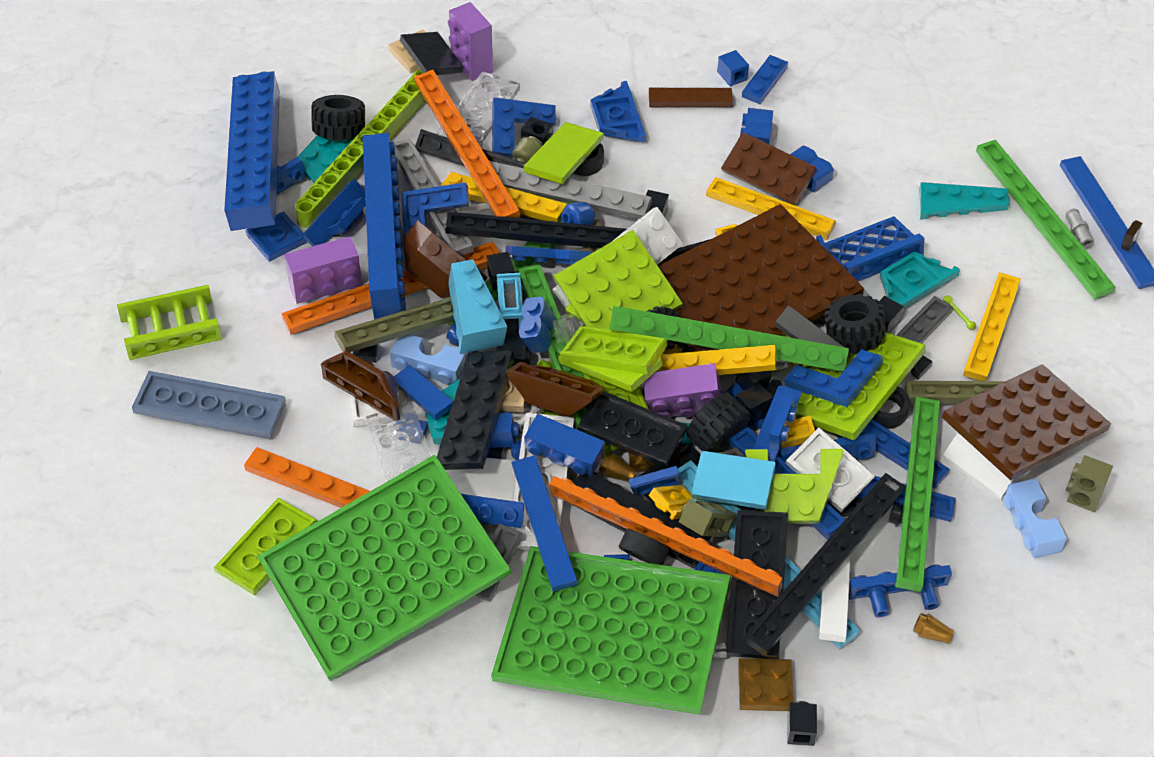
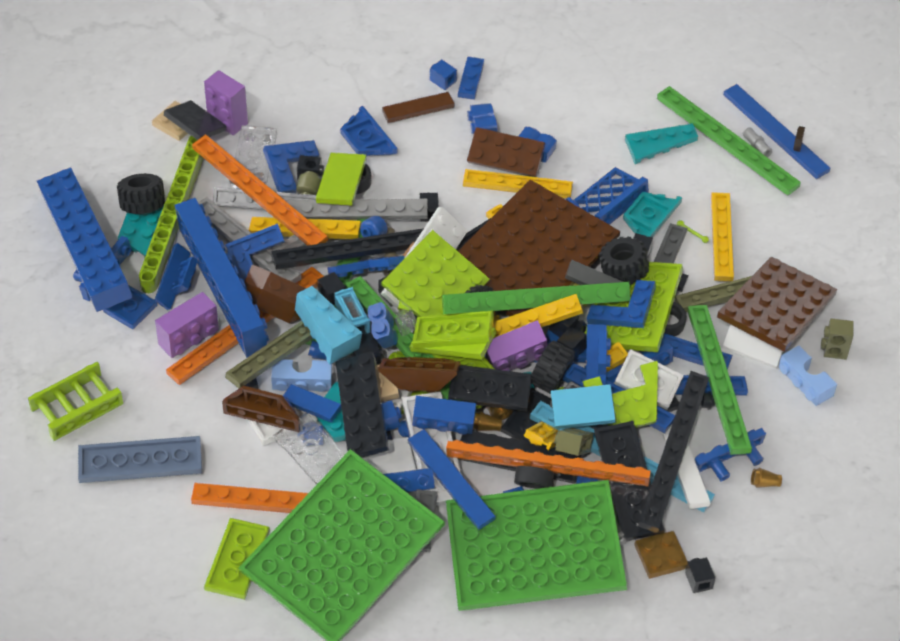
camera: 20 degrees left, 0 degrees up
(645, 483) = (522, 424): blue tile -> none

